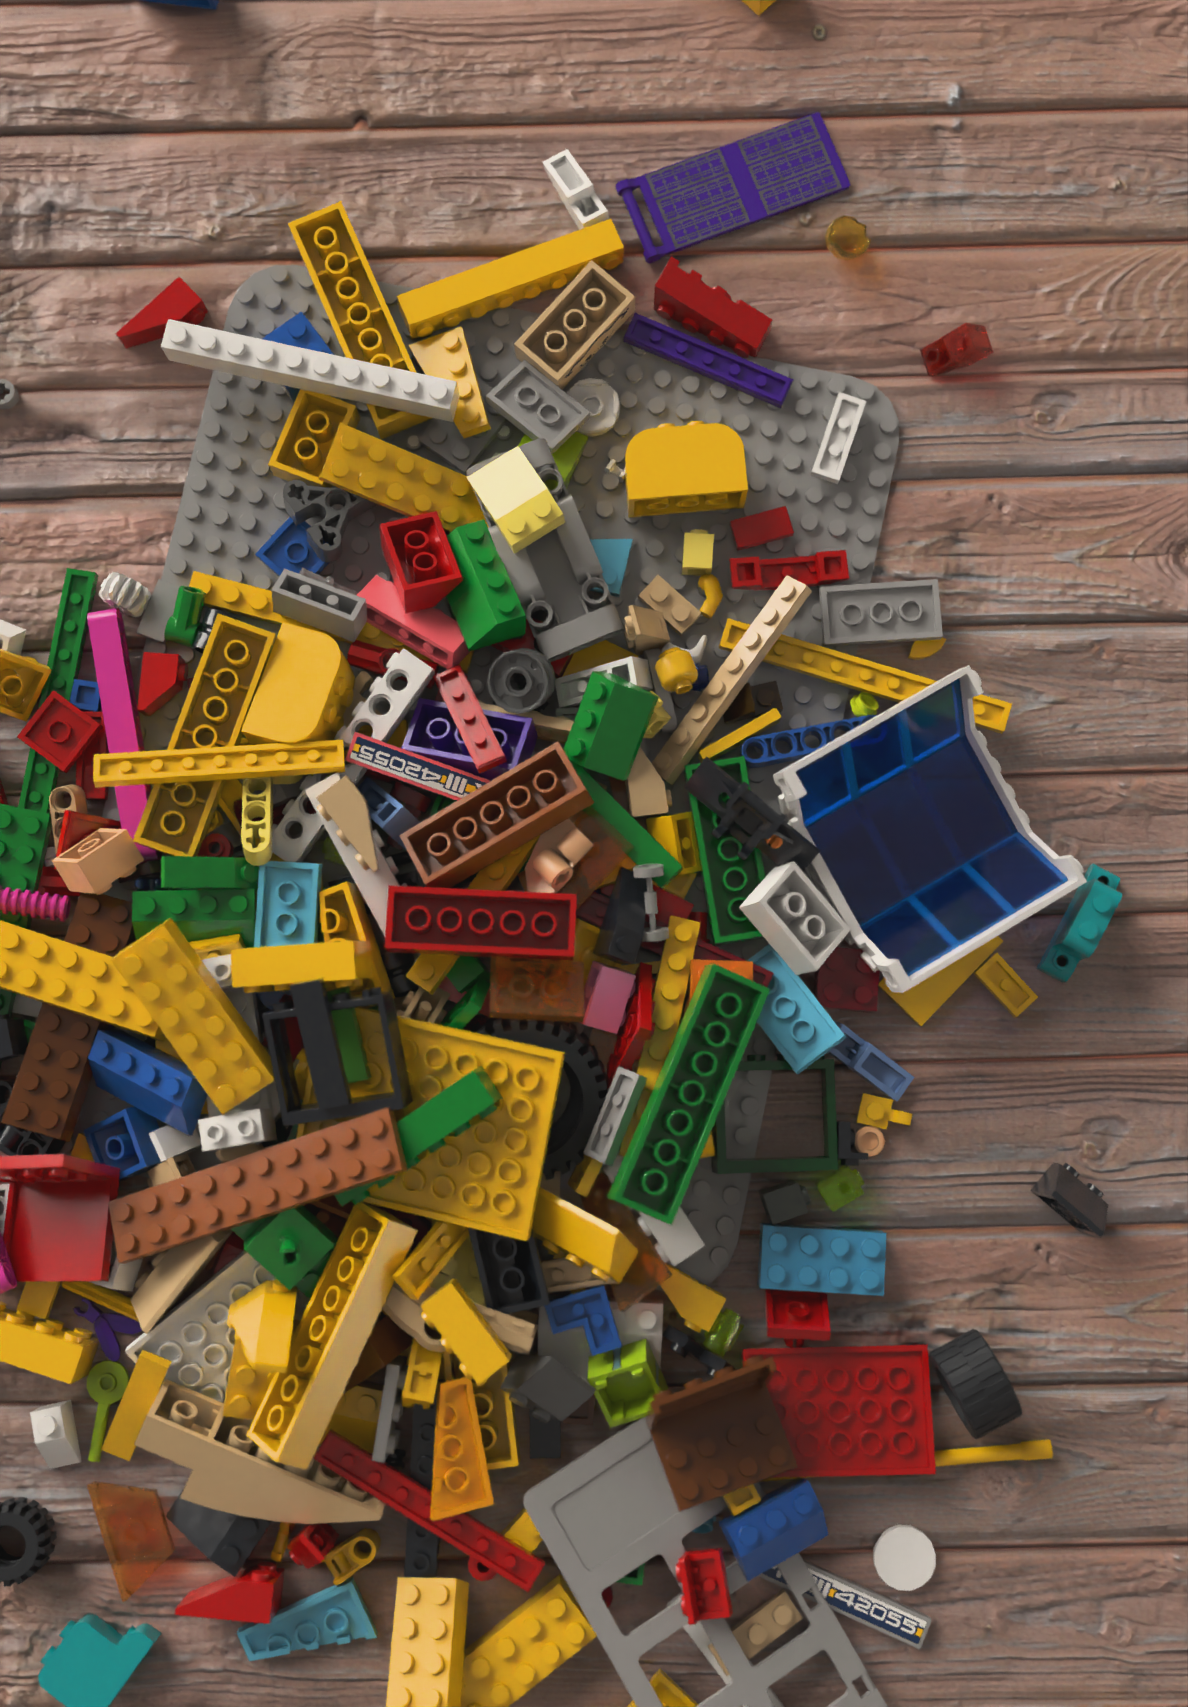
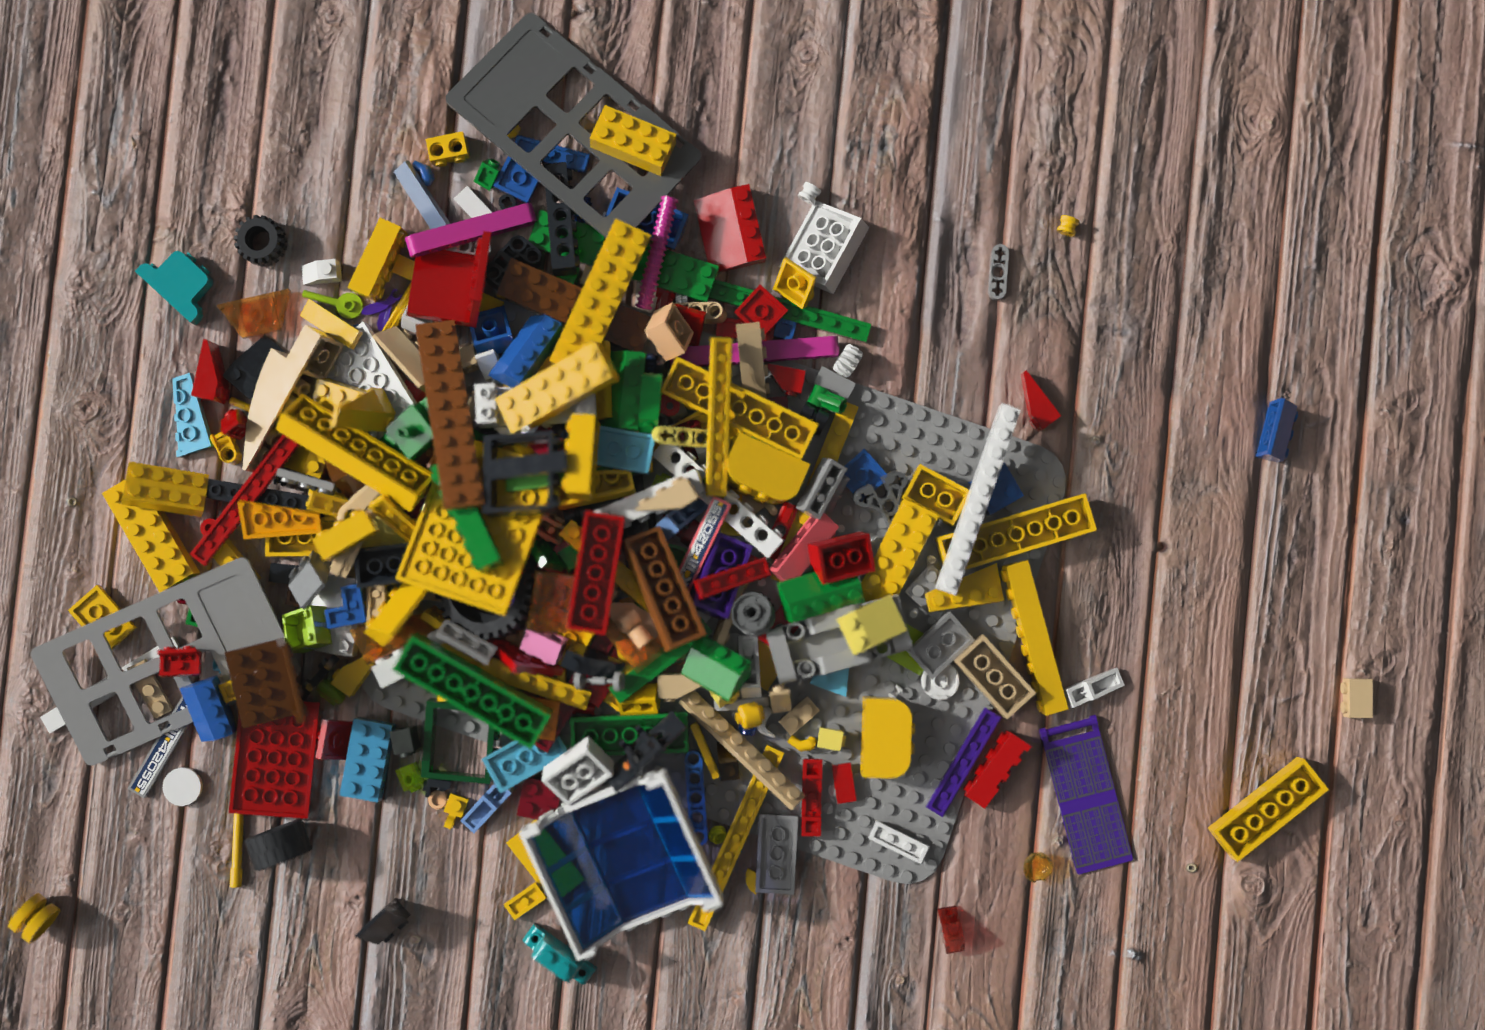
camera: 90 degrees right, 5 degrees up
(124, 730) = (751, 358): none -> tan brick

